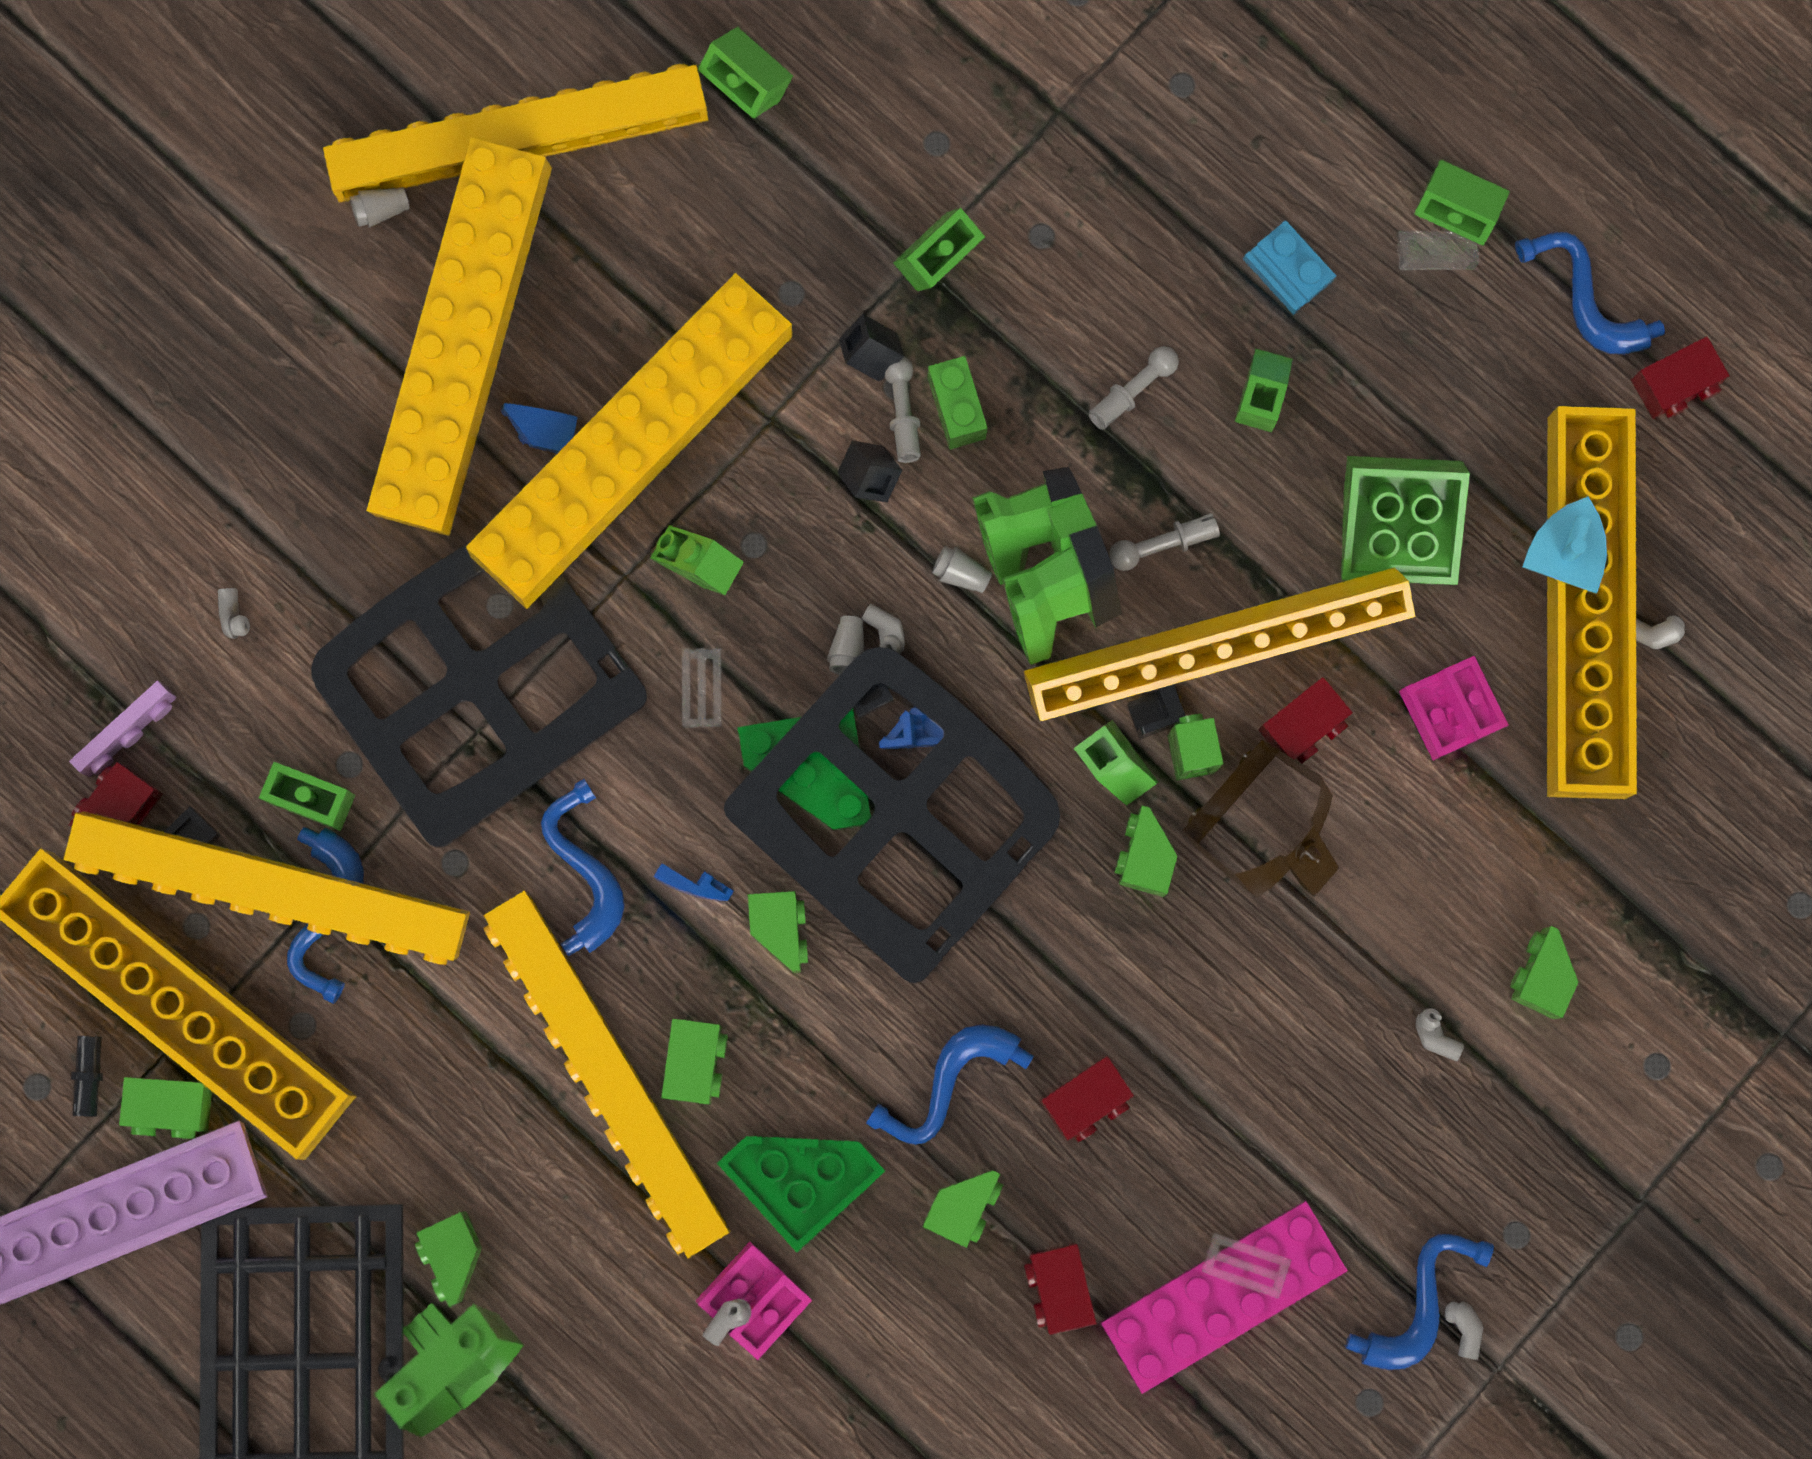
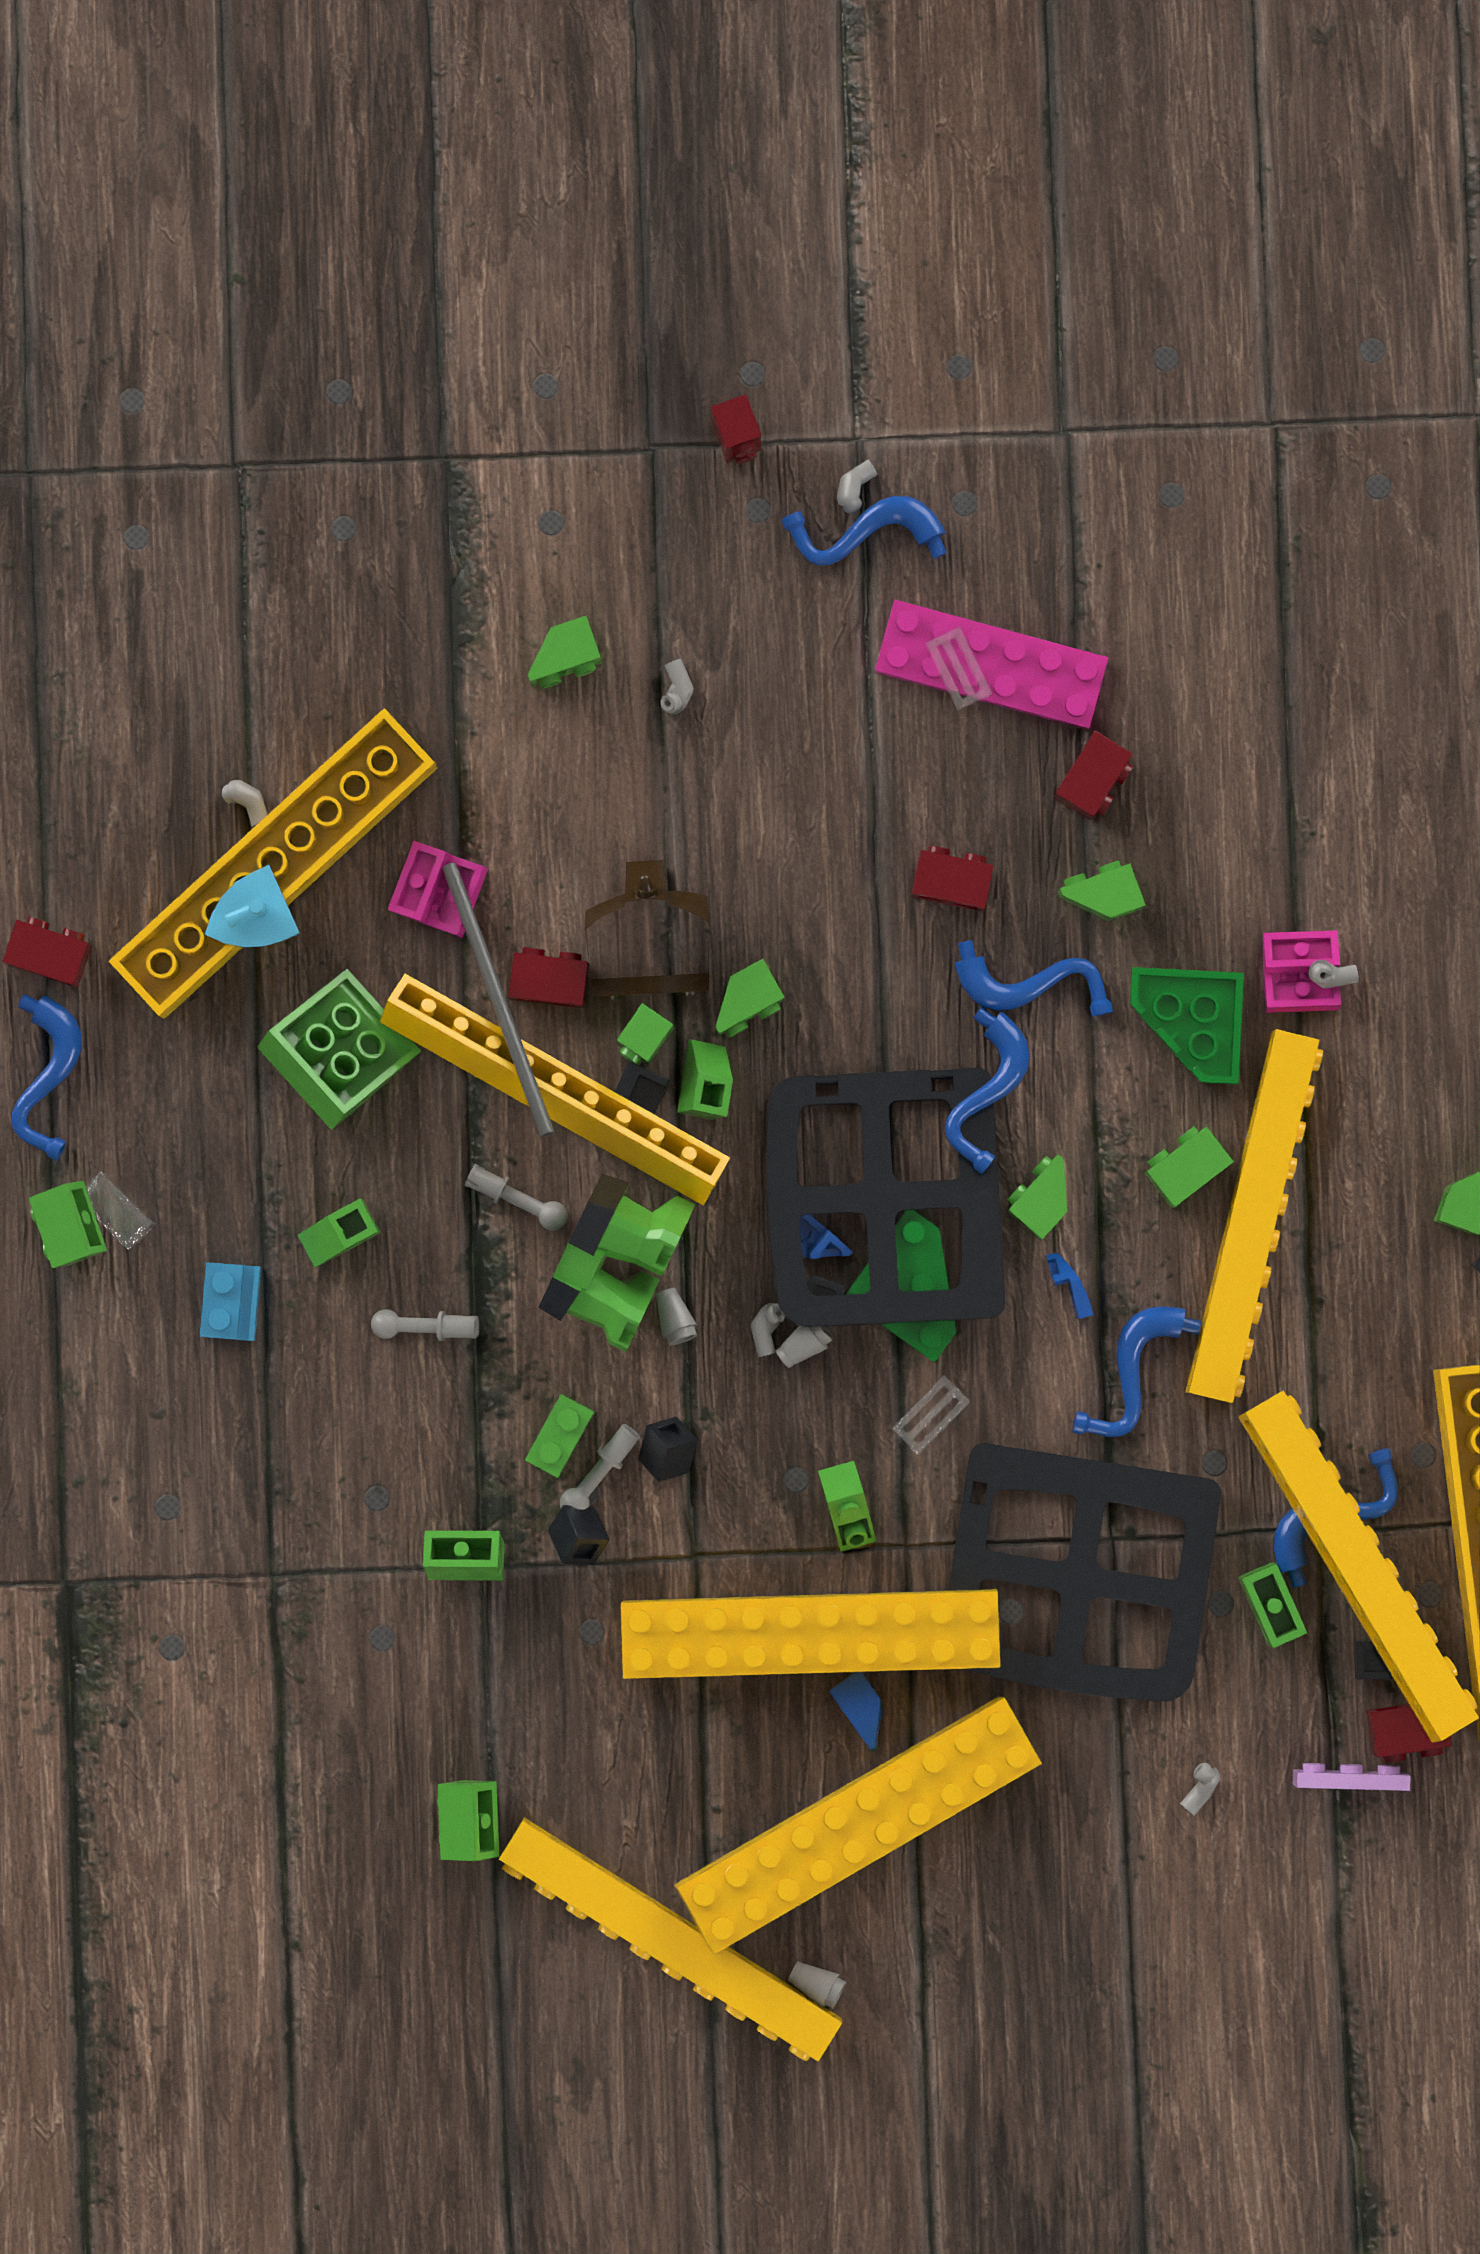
camera: 135 degrees left, 5 degrees up
(899, 1006) = (1012, 1069): none -> blue animal
(1327, 664) = (498, 1000): none -> dark grey piece
(1600, 1276) = (736, 429): none -> dark red brick

